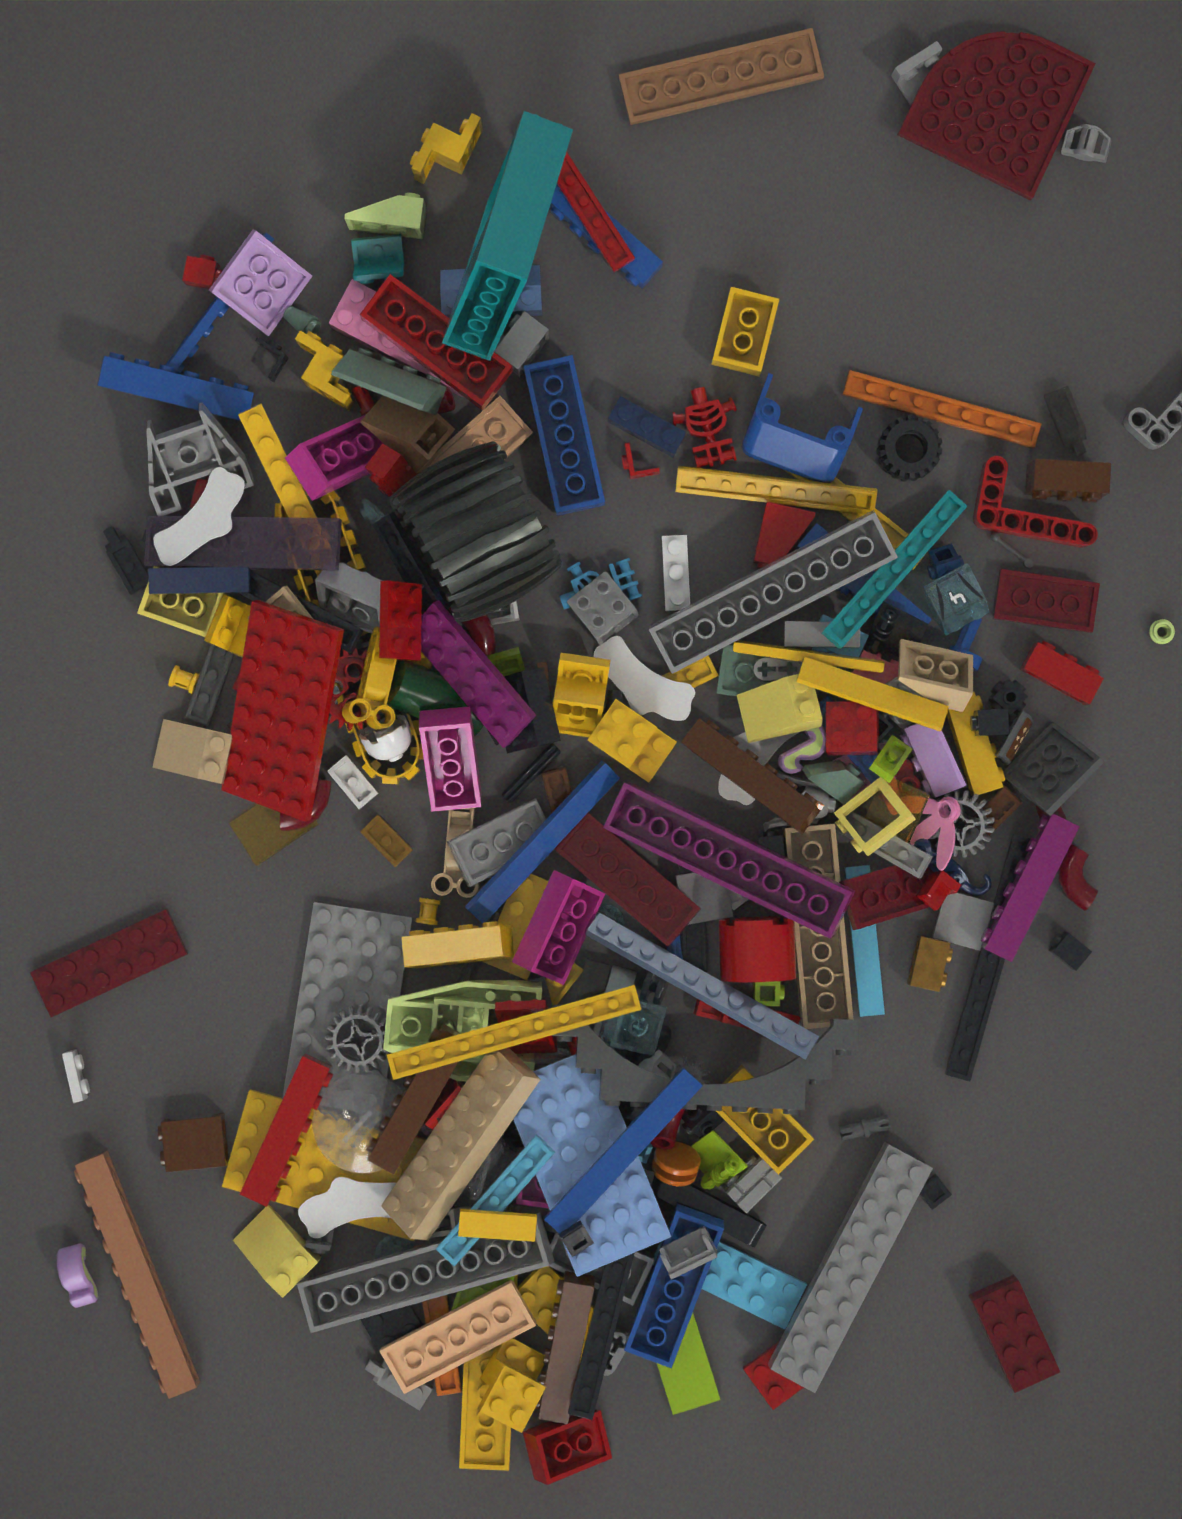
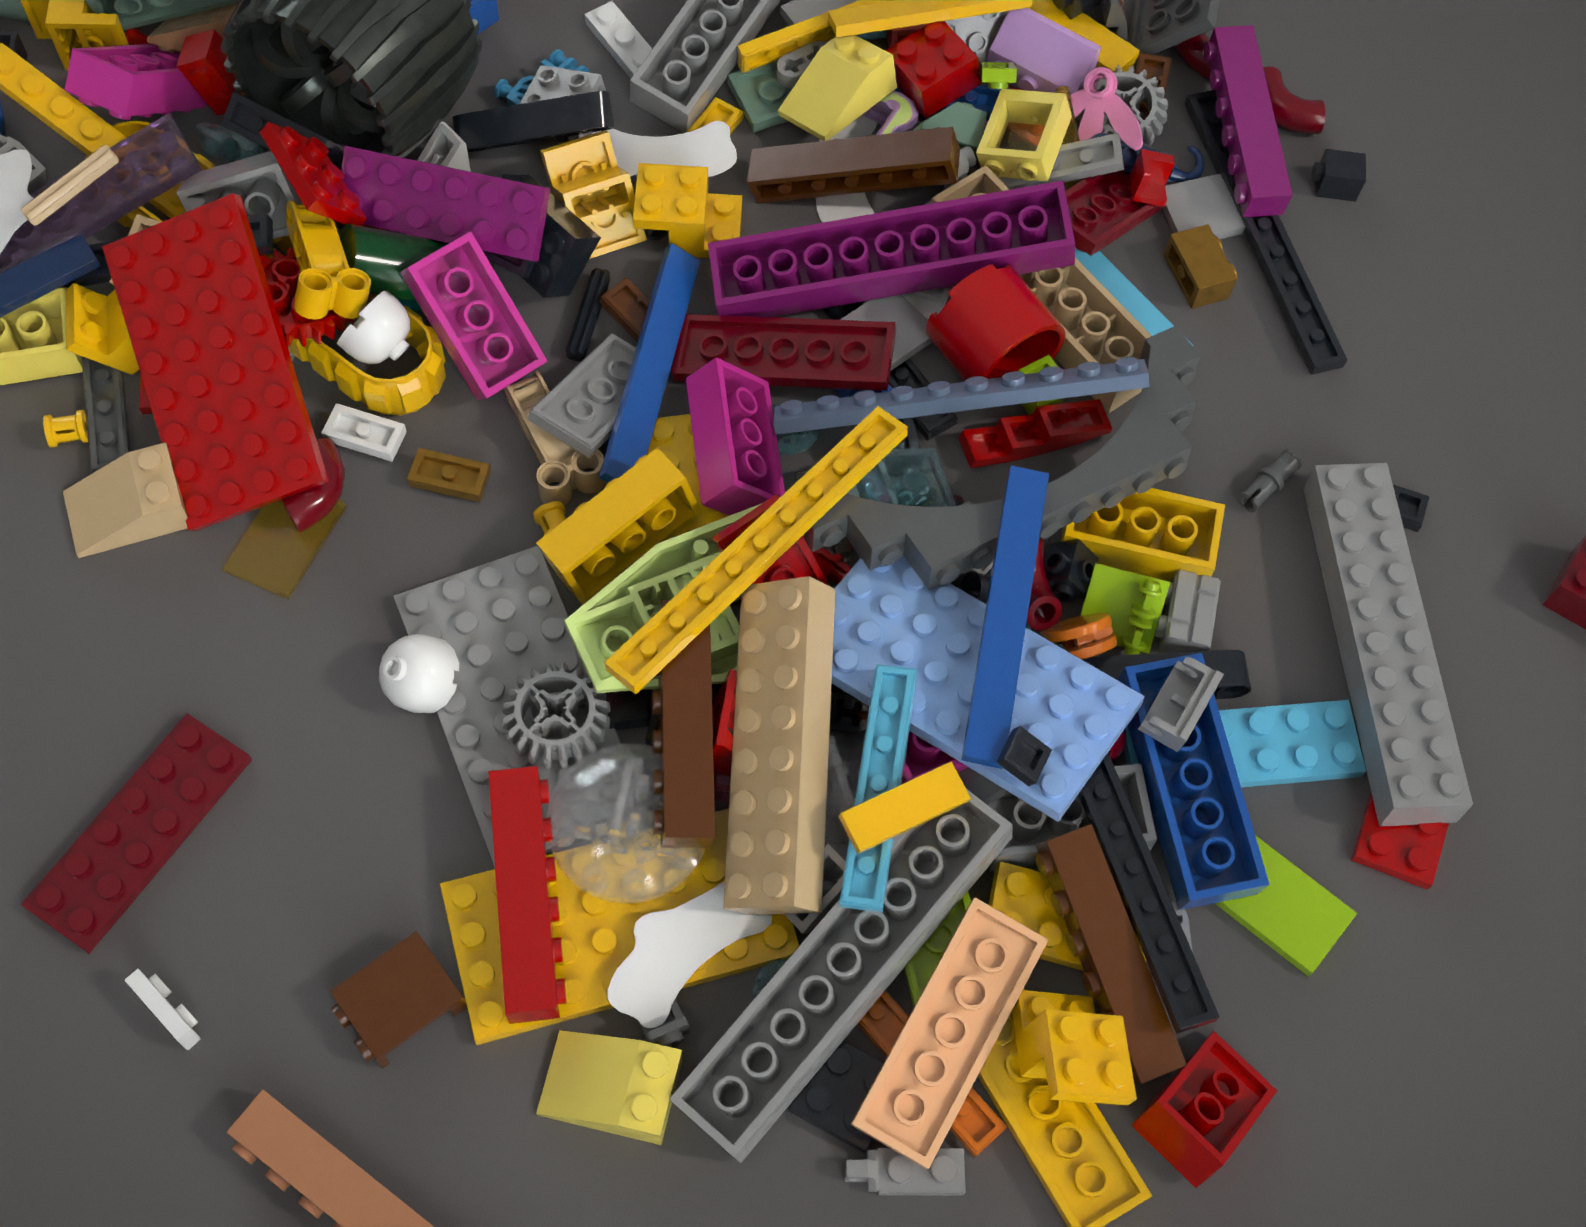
camera: 35 degrees left, 25 degrees down
(255, 534) = (70, 185): none -> tan axle
(300, 965) = (419, 673): none -> white cylinder
(572, 625) = (535, 121): none -> black beam

